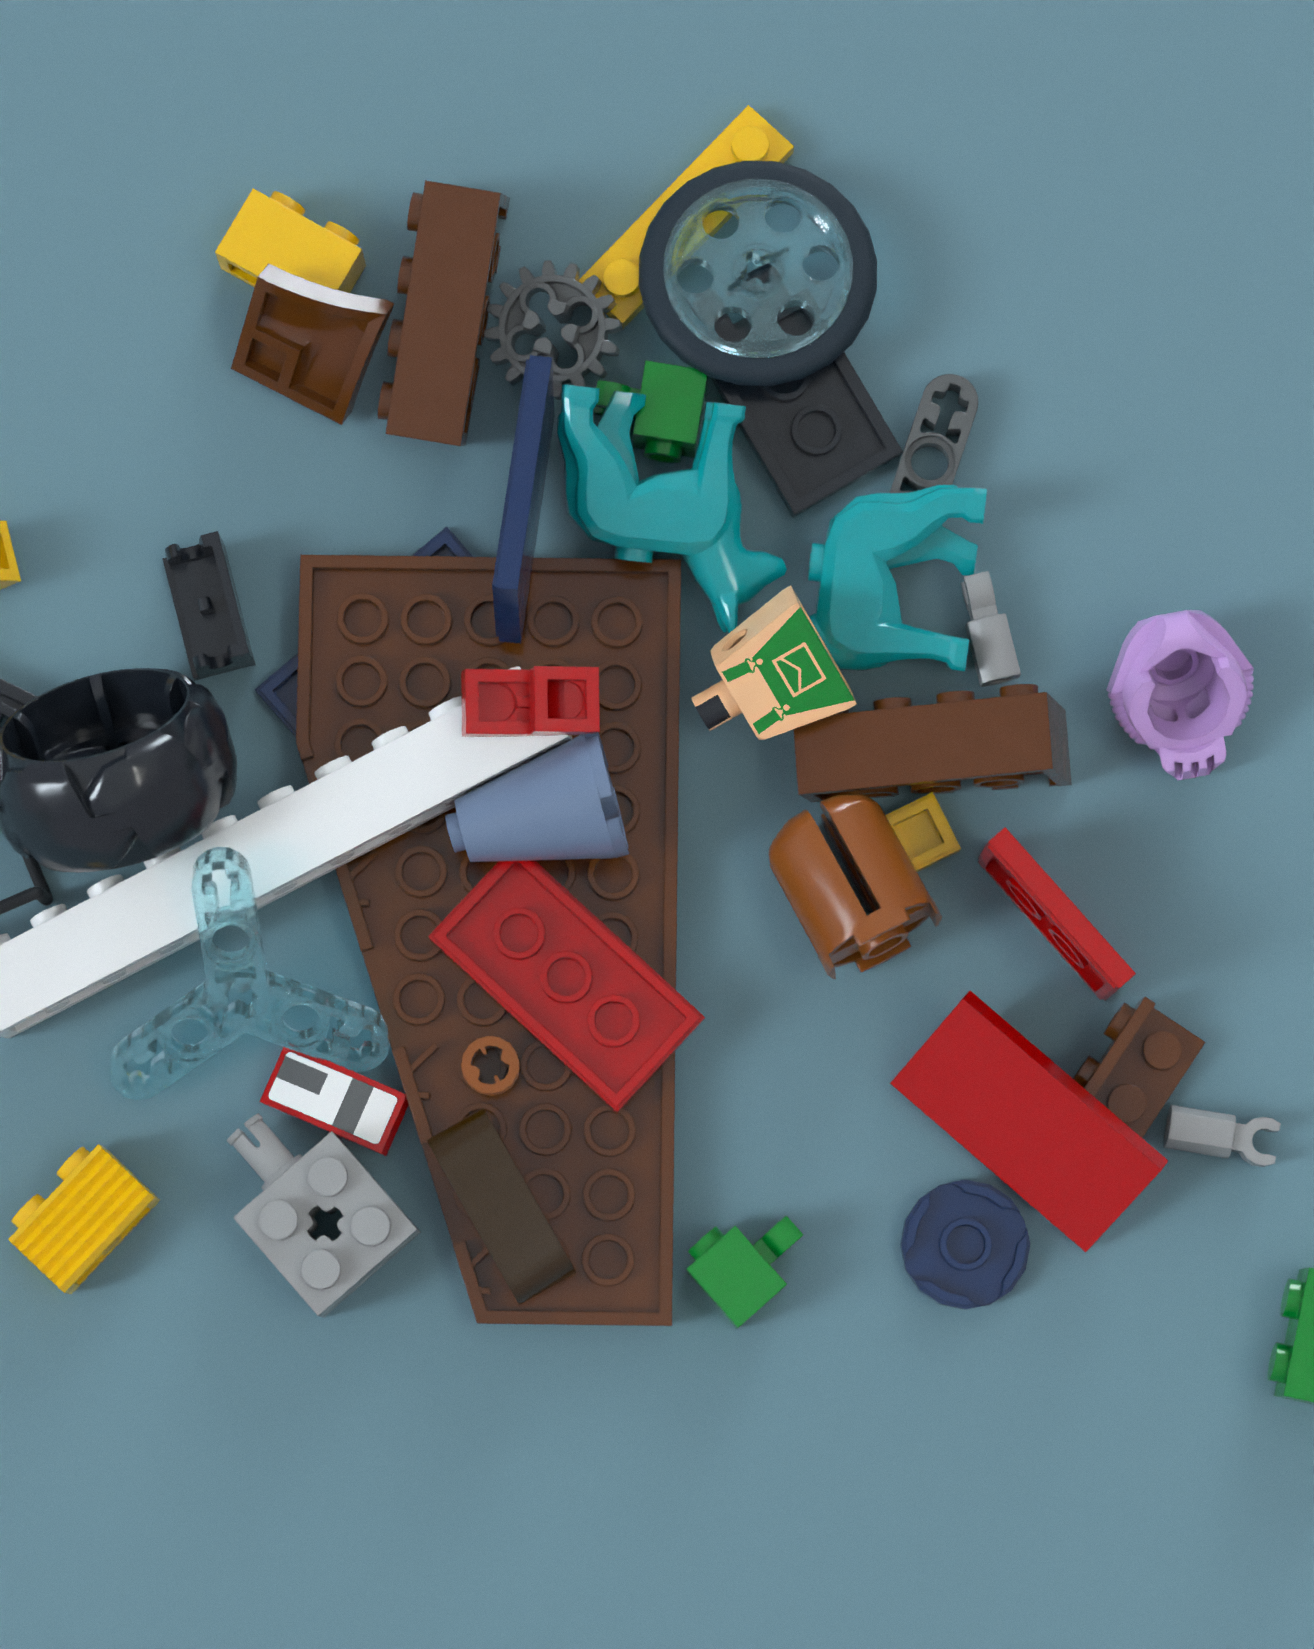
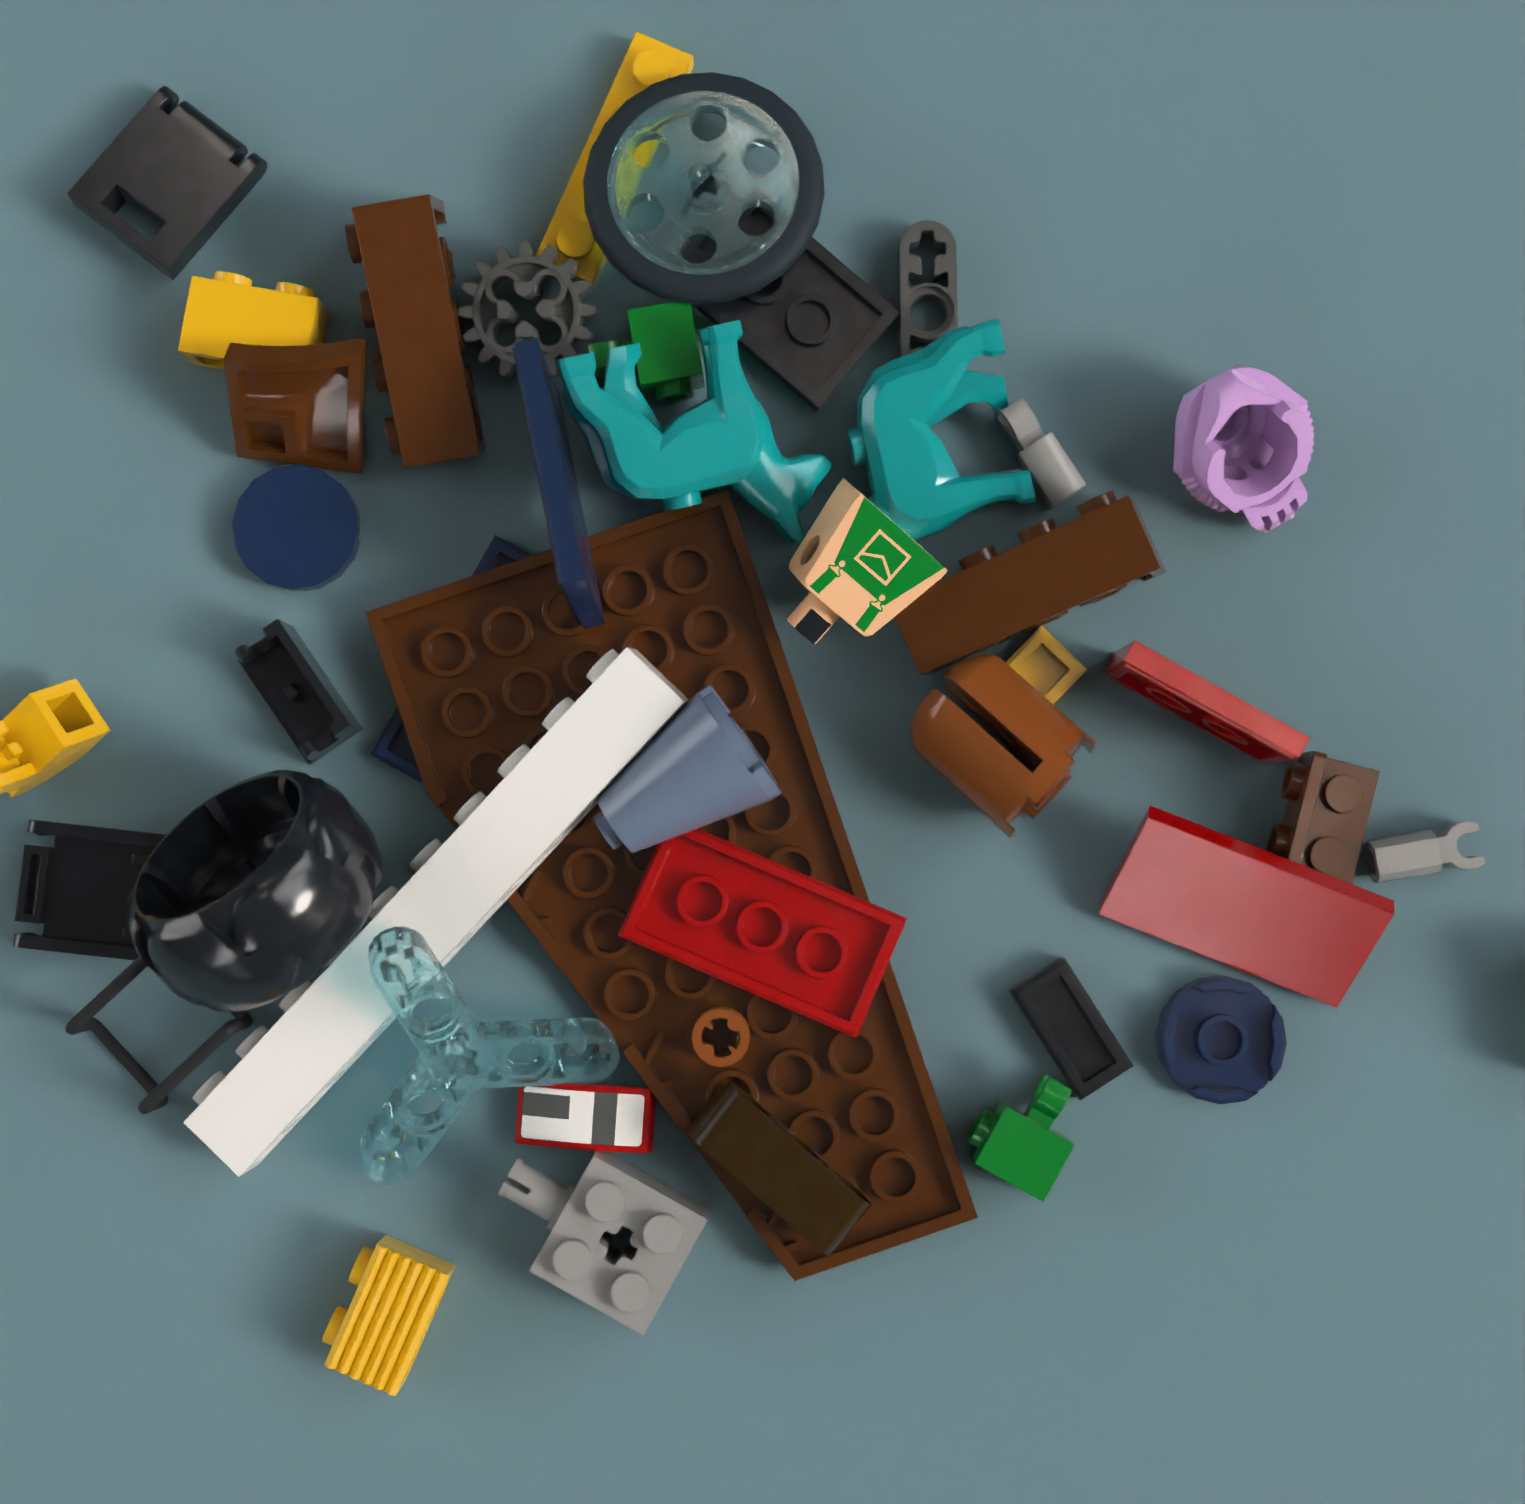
camera: 15 degrees left, 5 degrees up
(262, 454) = (296, 528): none -> dark blue tile
(271, 83) = (177, 170): none -> black container
(530, 701) = (636, 682): red slope -> none
(825, 1183) = (1071, 1028): none -> black tile

